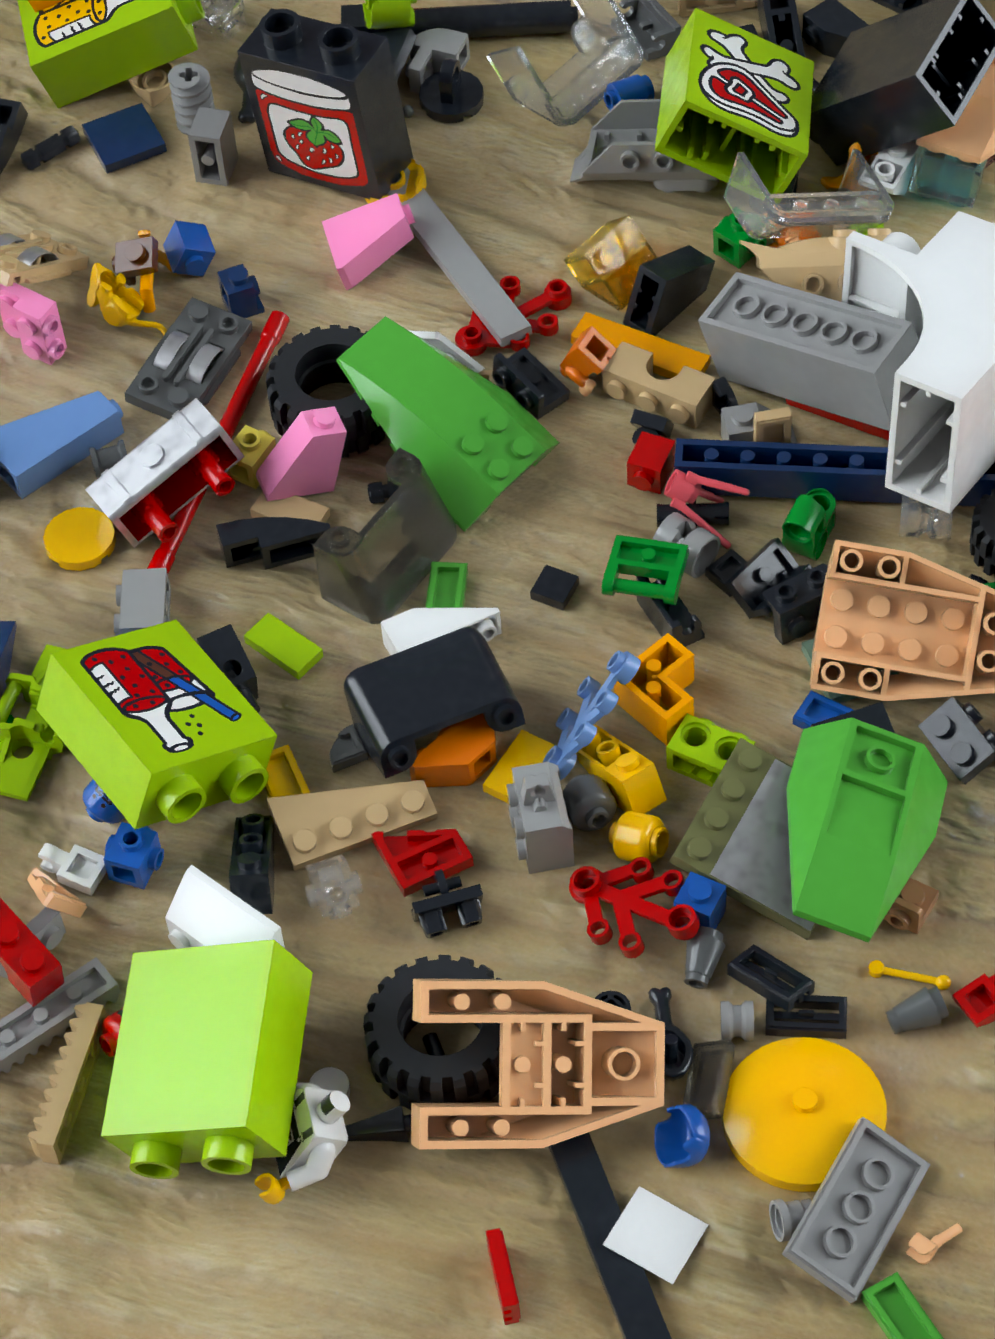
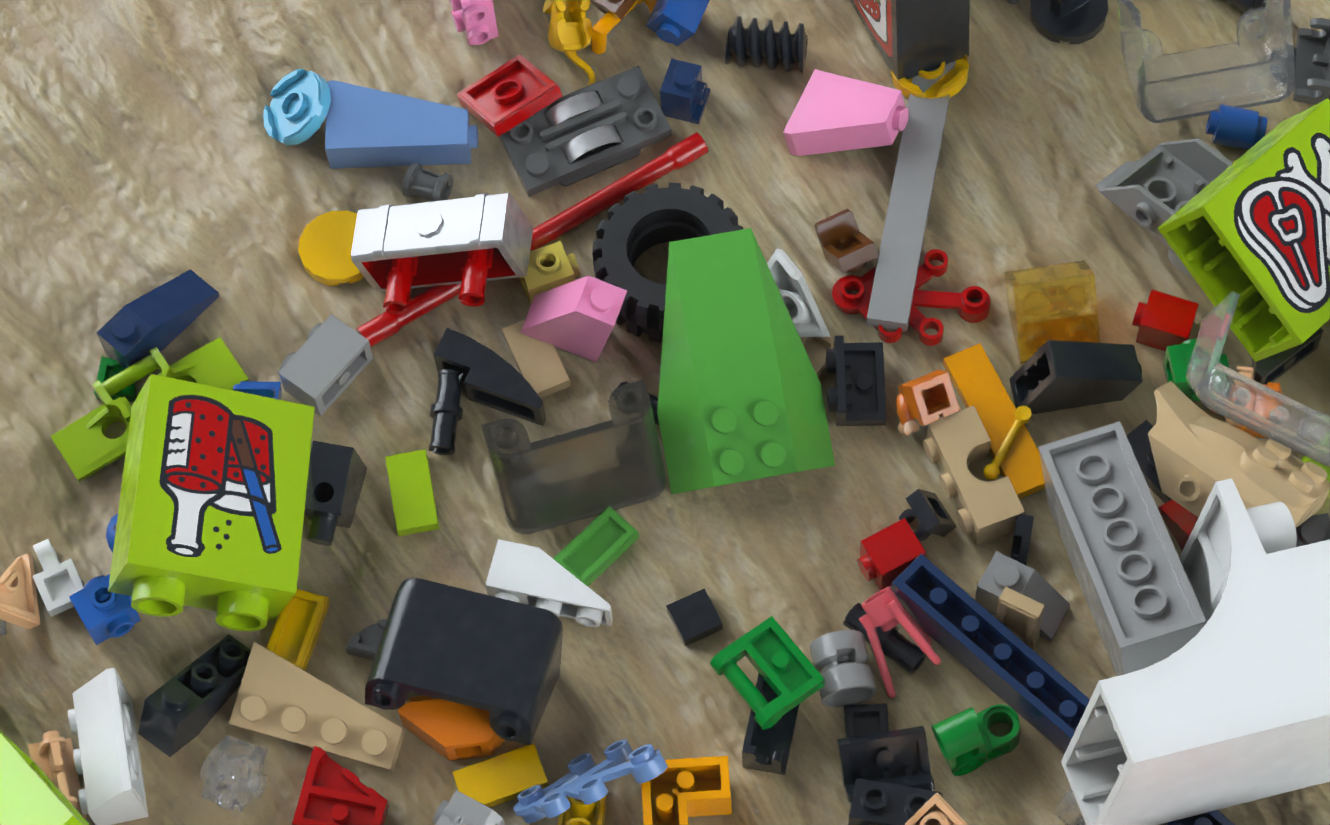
camera: 40 degrees right, 10 degrees up
(117, 367) = (509, 95): none -> red tile
(261, 581) = (446, 412): none -> black pin
(269, 229) = (767, 44): none -> black piece
(440, 314) = (844, 243): none -> reddish brown bracket
(655, 333) = (1022, 416): none -> yellow hinge
(692, 223) = (1164, 320): none -> red brick

